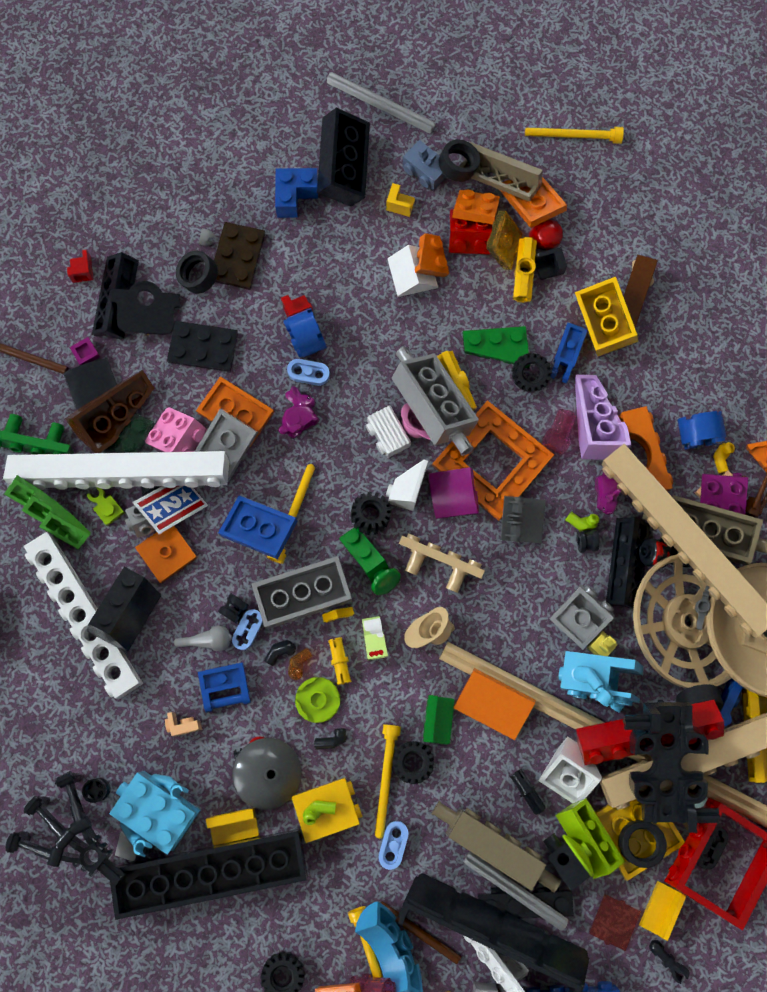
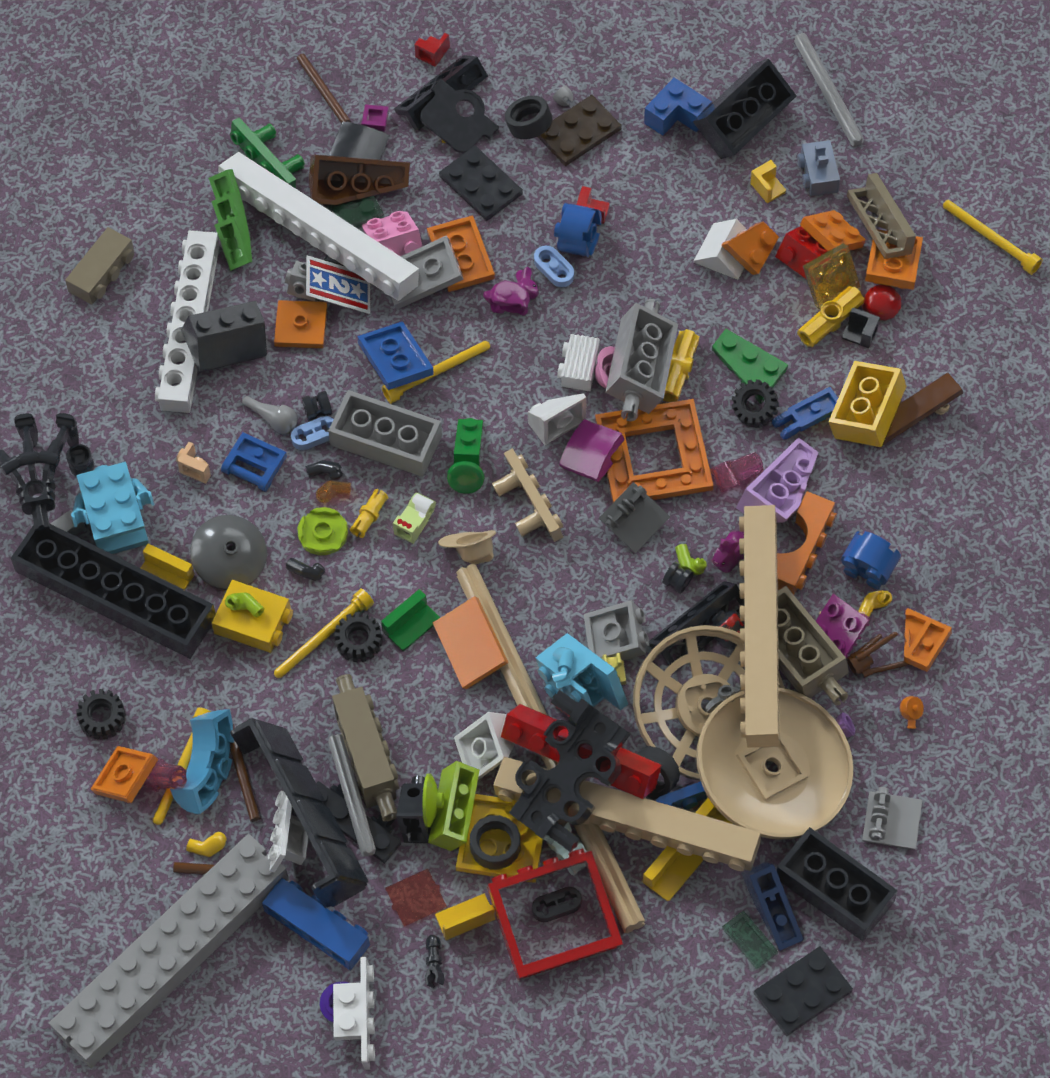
camera: 45 degrees right, 15 degrees down
(107, 508) = (283, 254): lime plate -> none
(338, 613) = (403, 474): yellow tile -> none
(373, 502) = (501, 426): black tyre -> none
(393, 844) = (280, 686): light blue plate -> none
(462, 148) = (855, 166): black tyre -> none
(528, 791) = (435, 735): black axle -> none

